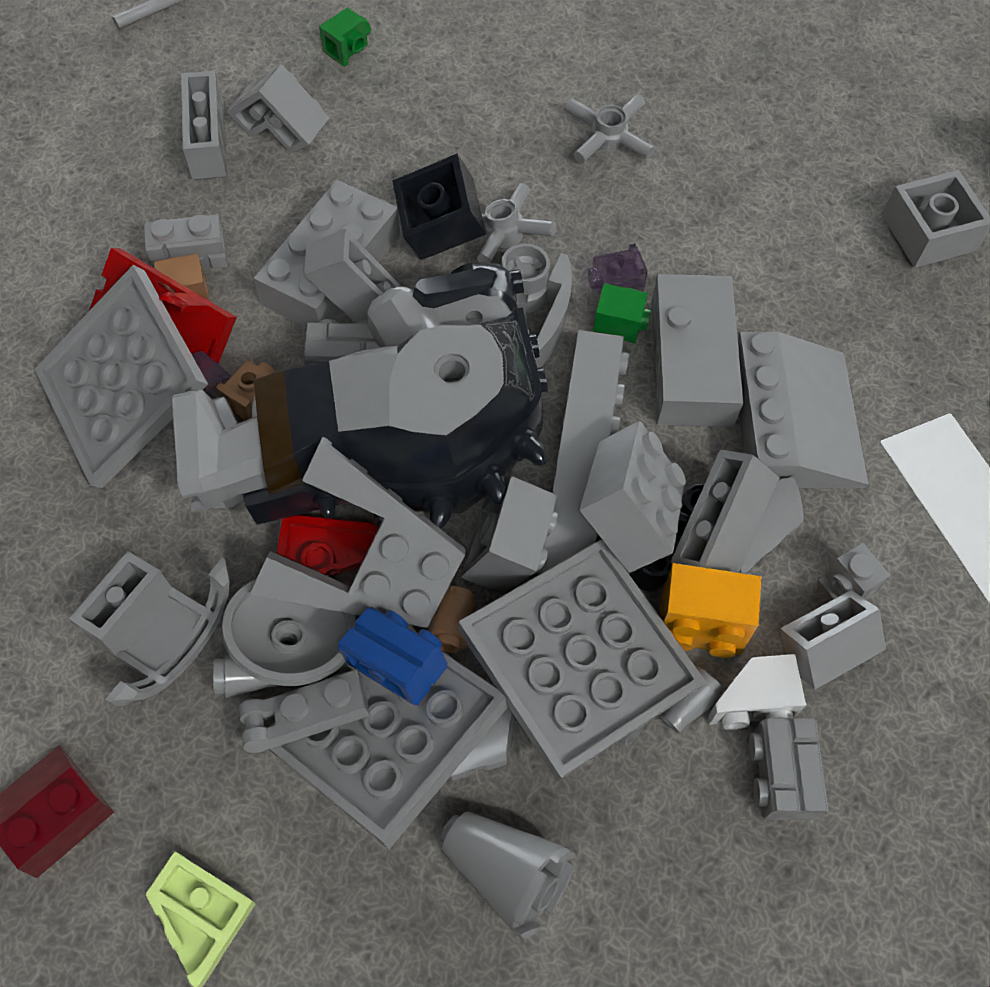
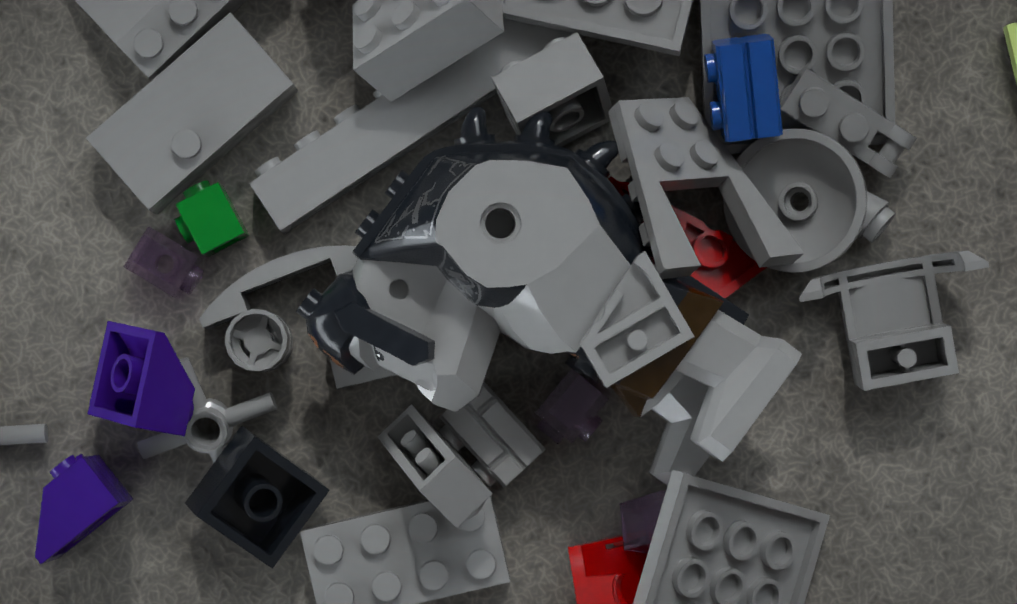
camera: 130 degrees left, 25 degrees up
(240, 388) = (632, 469): medium nougat brick -> none
(305, 396) = (634, 324): none -> light grey wing
(455, 606) = (661, 81): medium nougat brick -> none
(526, 133) = (76, 504): none -> dark purple slope
(555, 197) = (141, 381): none -> dark purple slope

